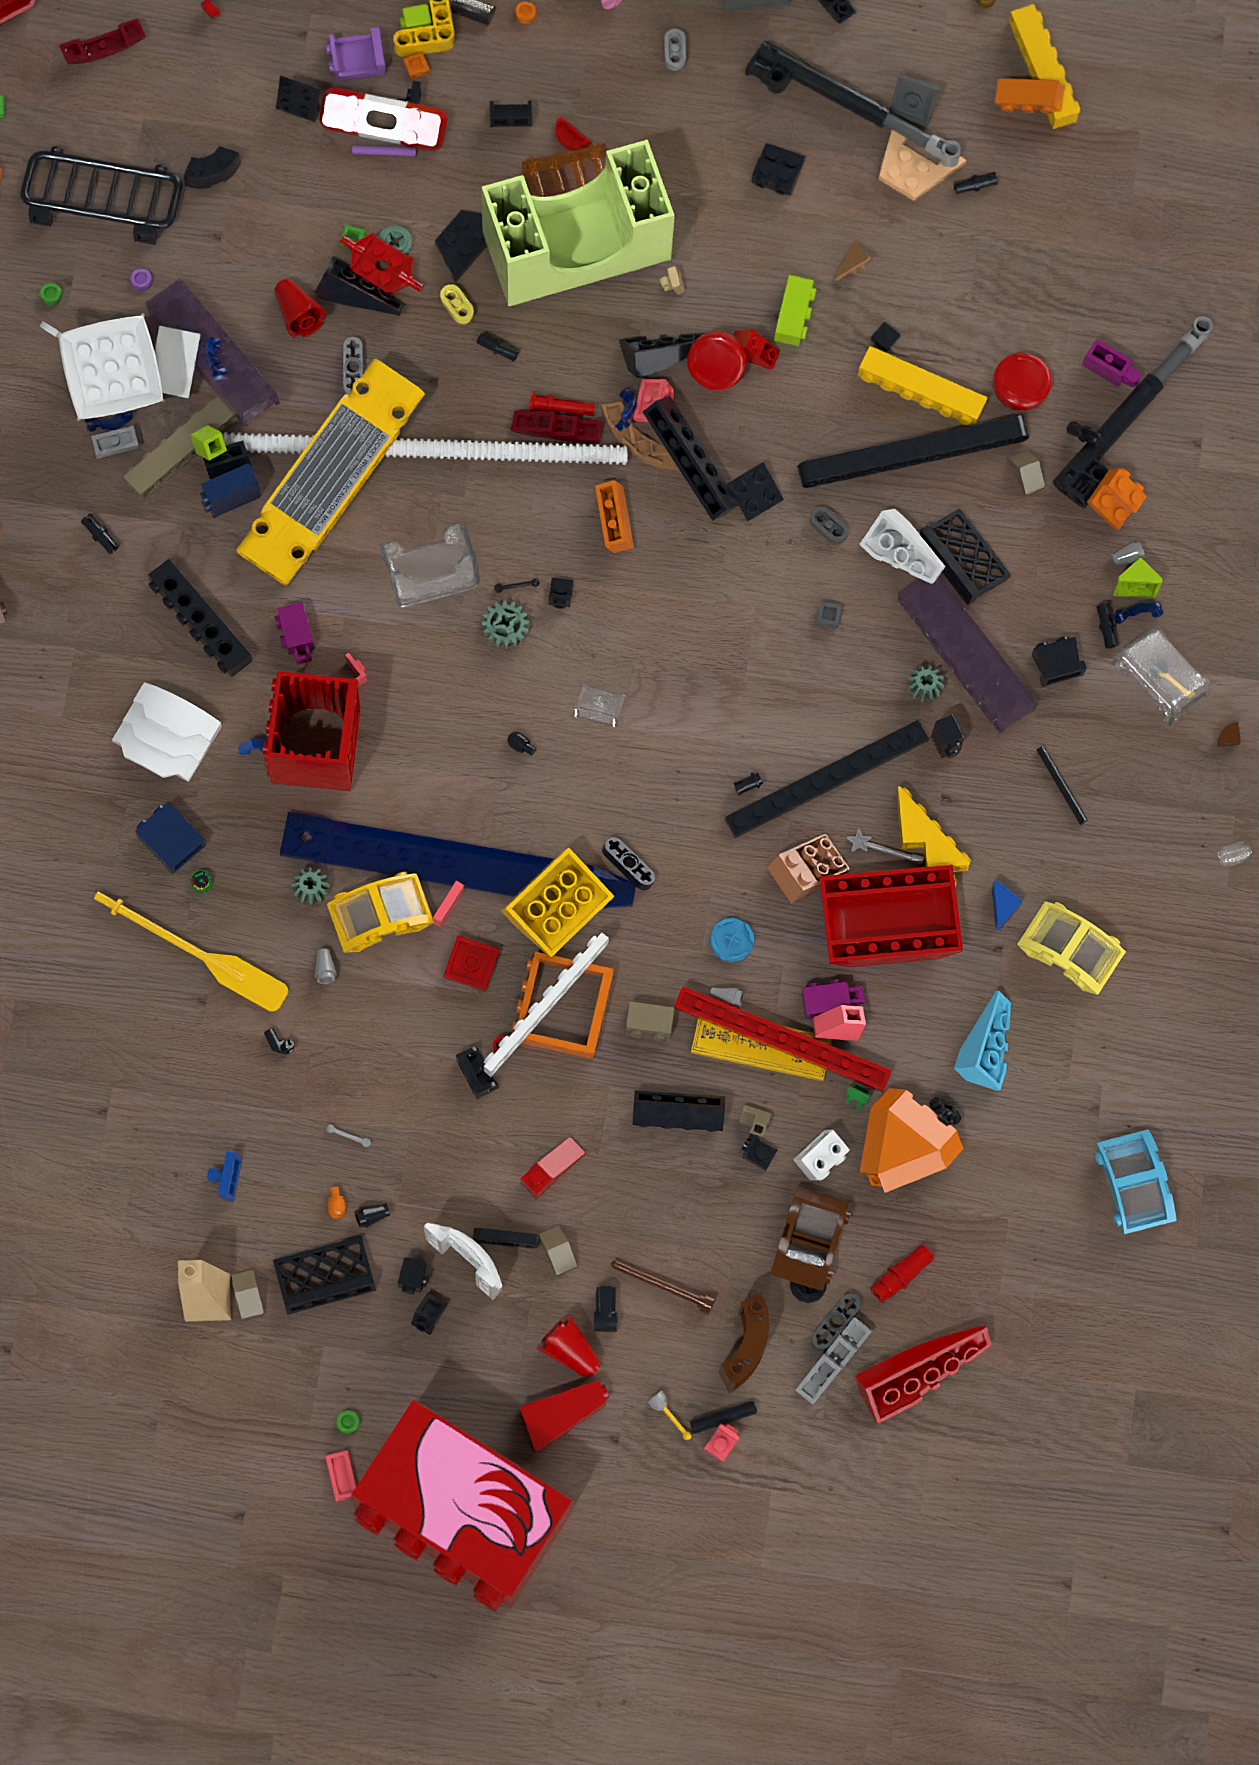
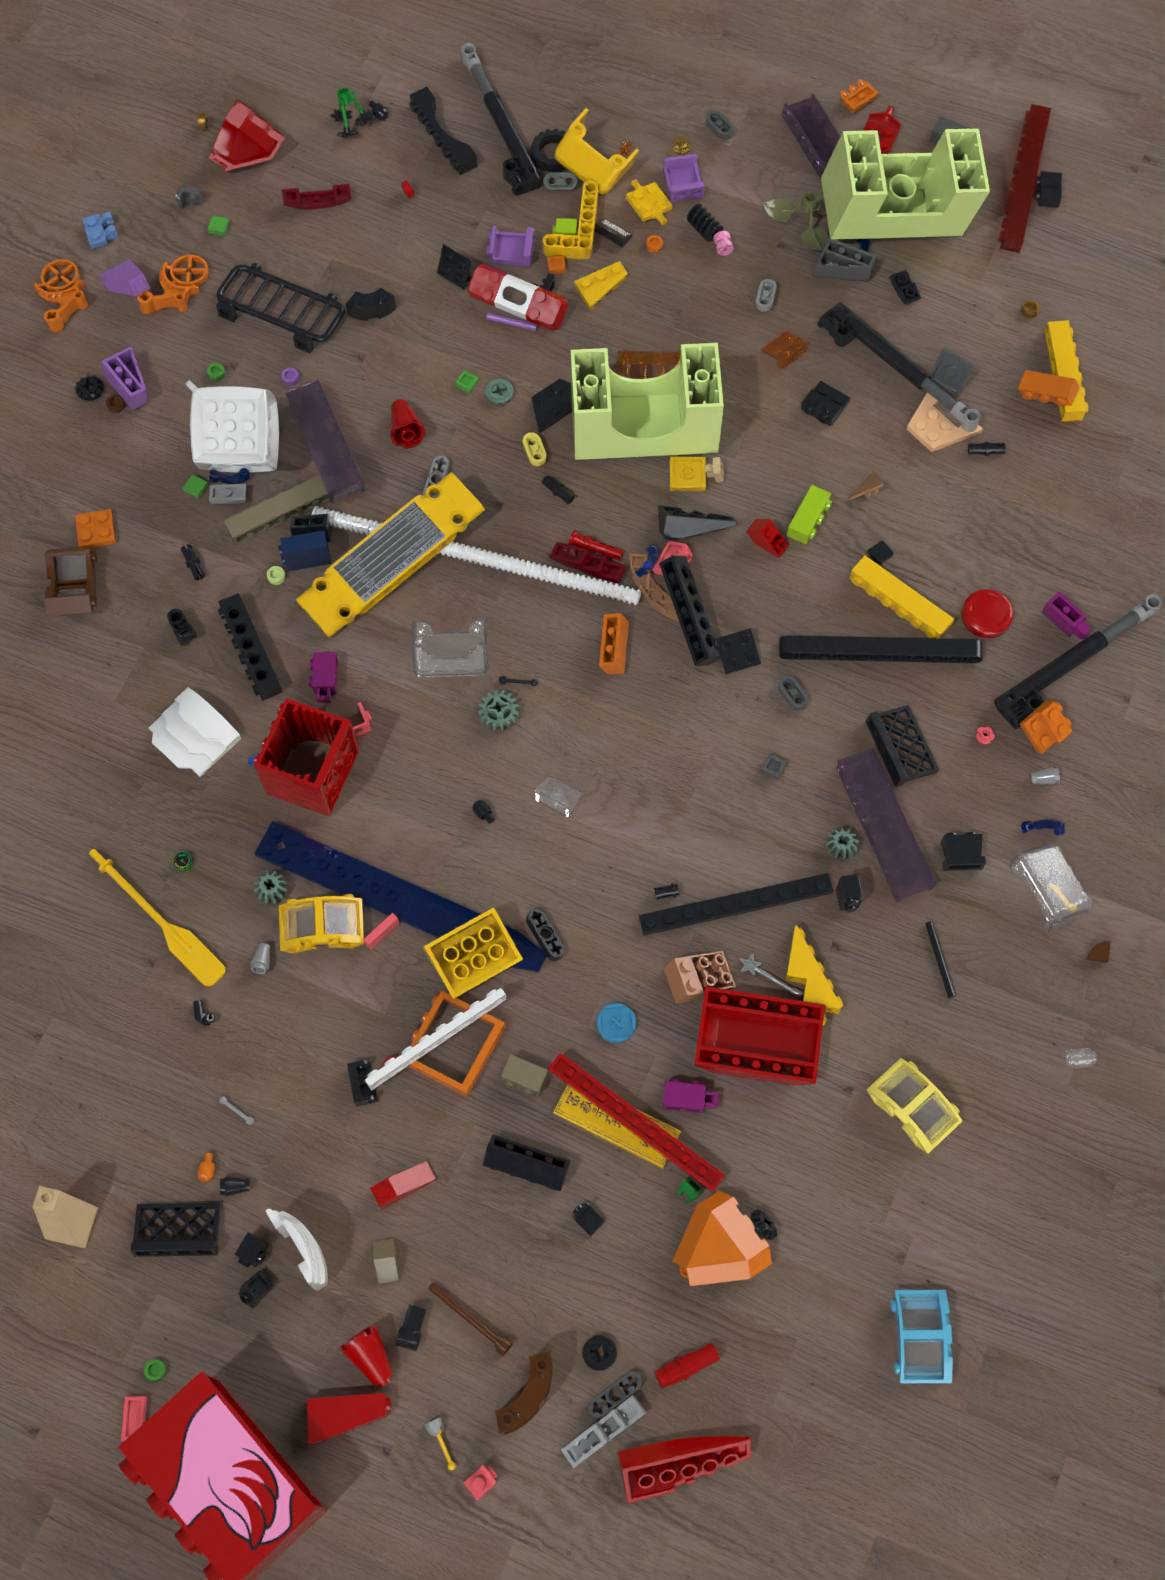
camera: 20 degrees right, 5 degrees down
(72, 441) = (195, 486): none -> bright green tile
(116, 616) = (182, 629): none -> black piece
(170, 837) = (167, 818): dark blue brick -> none
(175, 357) = (294, 440): white sticker -> none
(201, 526) = (276, 575): none -> yellowish green tile
(208, 442) = (297, 508): lime brick -> none
(211, 345) = (323, 432): clear blue arm -> none
(227, 1176) = (121, 1119): blue tile -> none
(247, 1294) = (104, 1229): dark tan slope -> none
(347, 288) = (447, 414): black wedge -> none
(369, 251) = (476, 393): red plate -> none
(471, 963) = (386, 987): red plate -> none
(474, 78) = (598, 284): none -> yellow wing
(506, 1238) = (343, 1238): black beam -> none
(511, 115) = (620, 317): black hinge -> none
(560, 593) = (552, 696): black bracket -> none
(569, 136) = (662, 341): red tile -> none
(641, 292) = (687, 473): none -> yellow tile
(715, 111) = (786, 348): none -> clear orange hinge
(716, 360) = (733, 538): red piece -> none
(723, 1417) = (489, 1457): black axle -> none
(730, 996) = (599, 1072): light grey cone -> none
(756, 1119) = (593, 1187): dark tan piece -> none
(811, 1240) = (612, 1313): reddish brown window -> none
(822, 1155) = (642, 1236): white brick -> none
(840, 1023) = (690, 1121): coral slope -> none
(899, 544) = (849, 722): white wedge -> none
(983, 1050) = (812, 1178): medium azure wedge -> none
(1004, 904) = (864, 1051): blue slope -> none
(1027, 471) = (974, 688): dark tan slope -> none
(1052, 528) = (985, 739): none -> coral plate
(1084, 433) = (1030, 667): black axle -> none
(1107, 625) = (1013, 832): black pin -> none
(1138, 581) = (1049, 800): lime slope -> none

